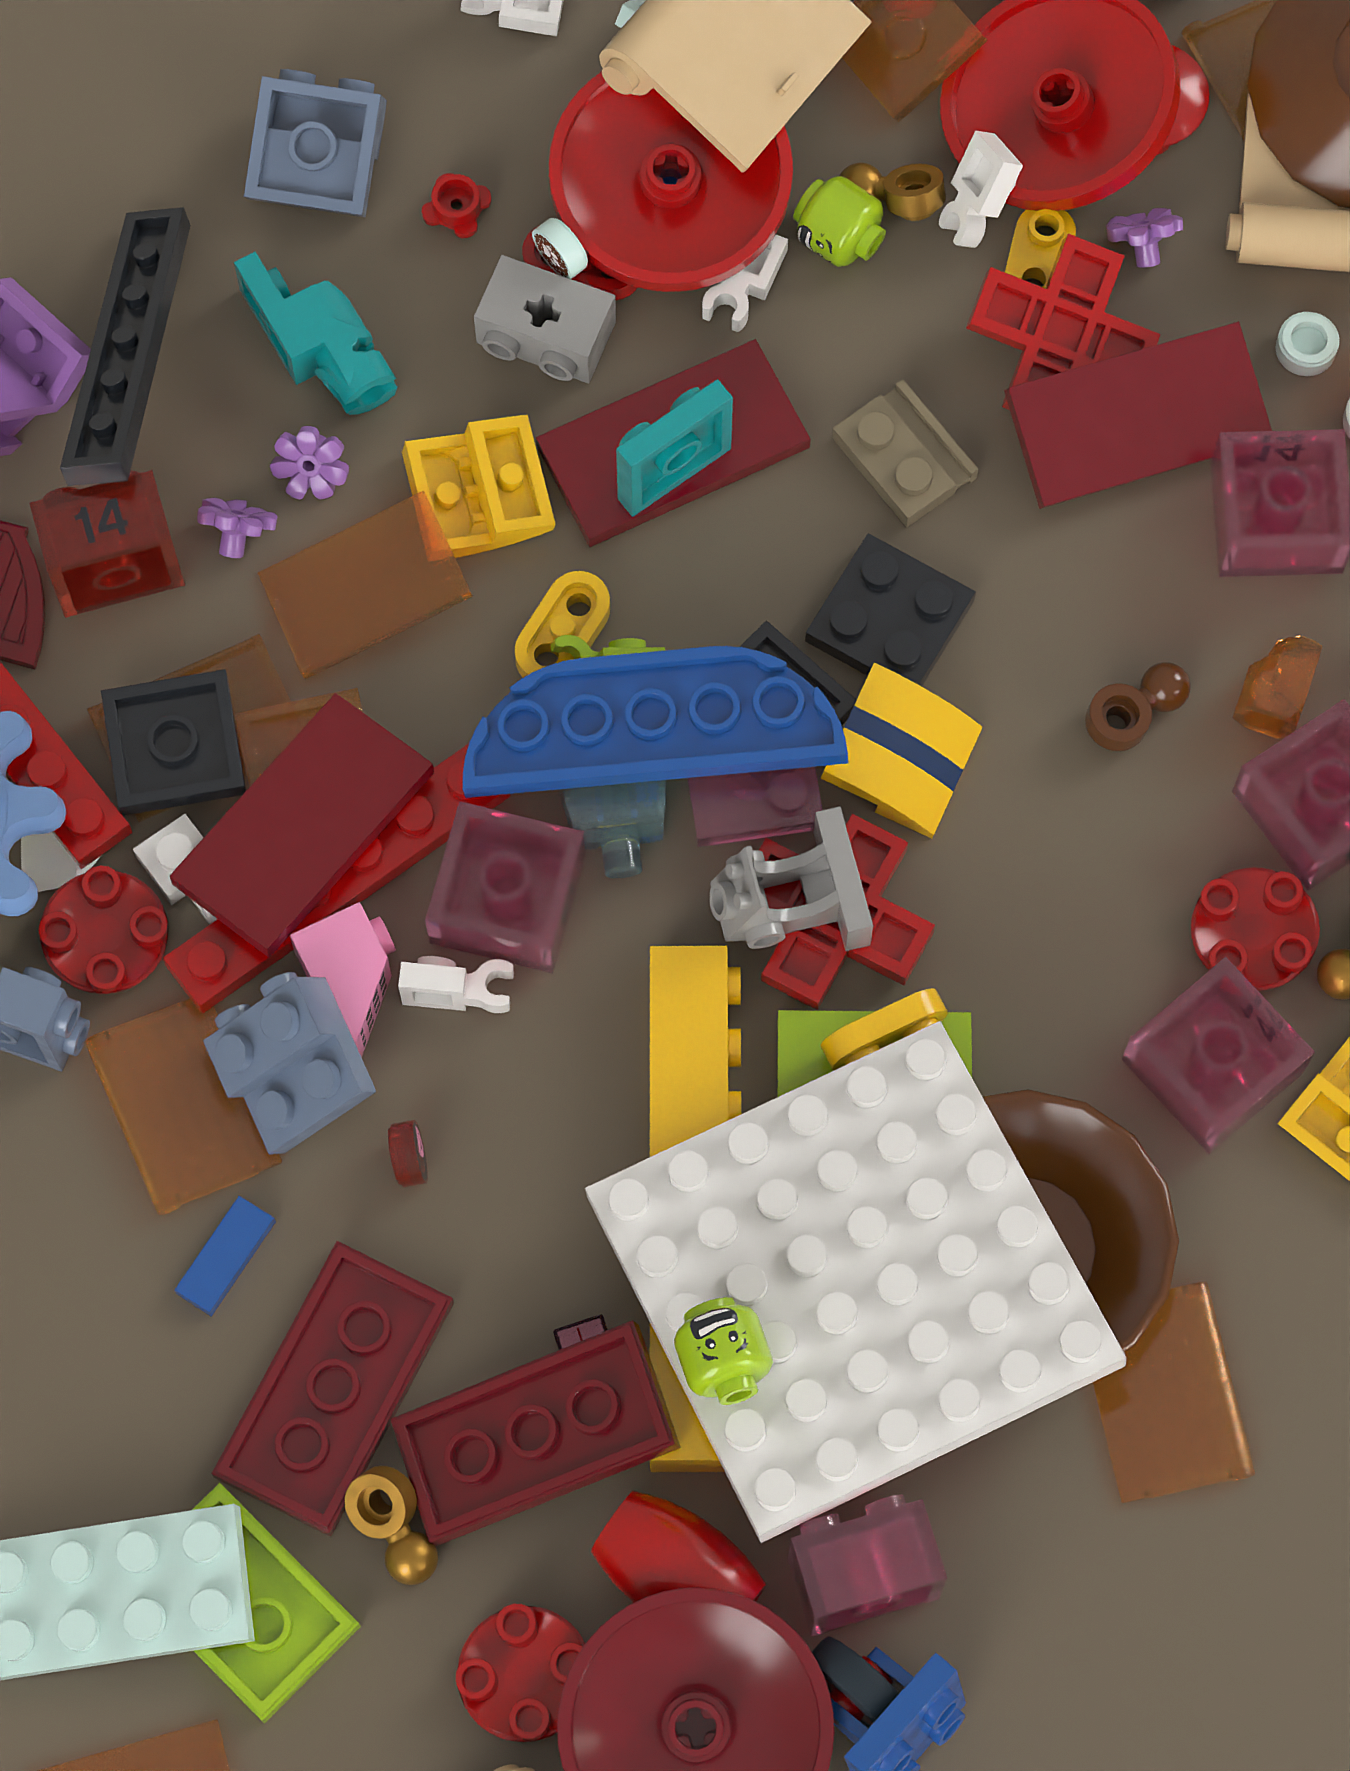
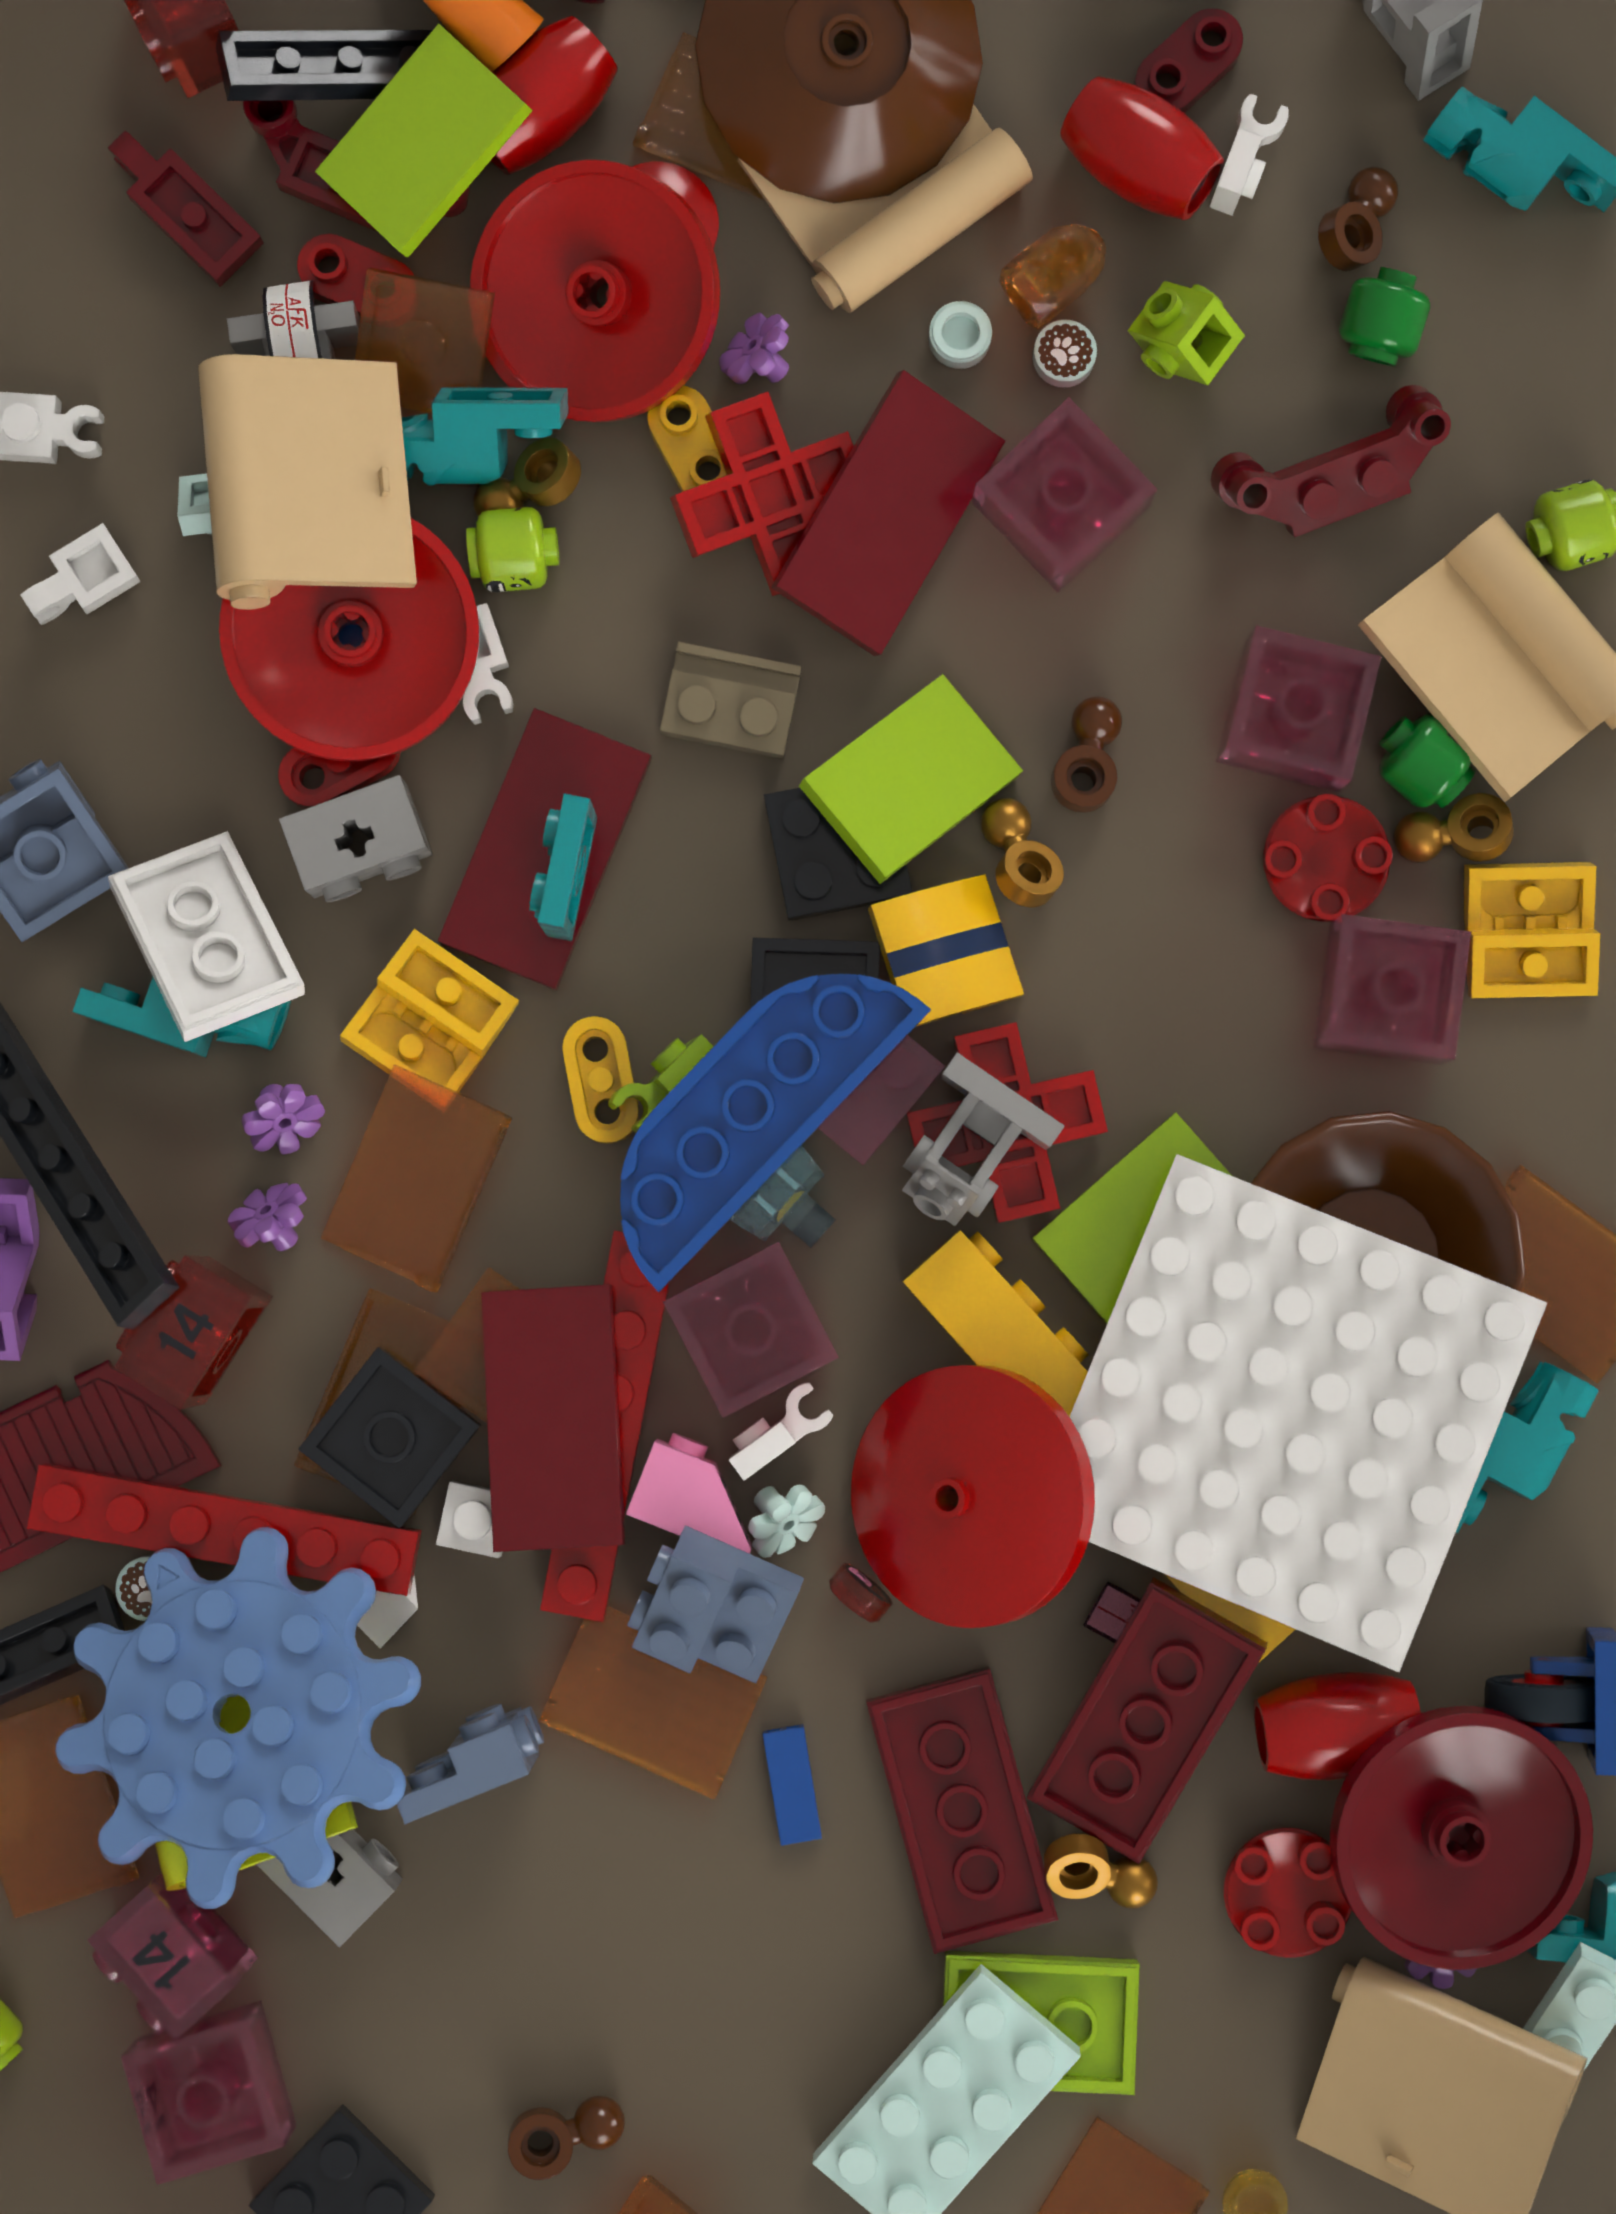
camera: 45 degrees left, 15 degrees up
(103, 931) = (473, 1626): red dish -> none
(375, 292) = (206, 936): none -> white tile
(402, 1052) = (784, 1519): none -> light aqua plant
(461, 189) = (180, 787): red plate -> none
(557, 1141) = (972, 1496): none -> red dish
(560, 248) = (321, 773): light aqua tile -> none
(723, 1350) = (1258, 1565): lime head -> none
(866, 1564) = (1480, 1608): clear pink brick -> none
(881, 118) = (470, 431): none -> teal plate
(883, 1027) = (1146, 1165): yellow plate -> none
(983, 186) = (603, 421): white plate -> none
(987, 606) = (910, 778): none -> lime tile
(1008, 1486) = (1533, 1438): none -> teal plate
(1016, 744) = (1029, 869): none -> pearl gold plate
(1278, 687) = (1184, 645): clear orange rock -> none

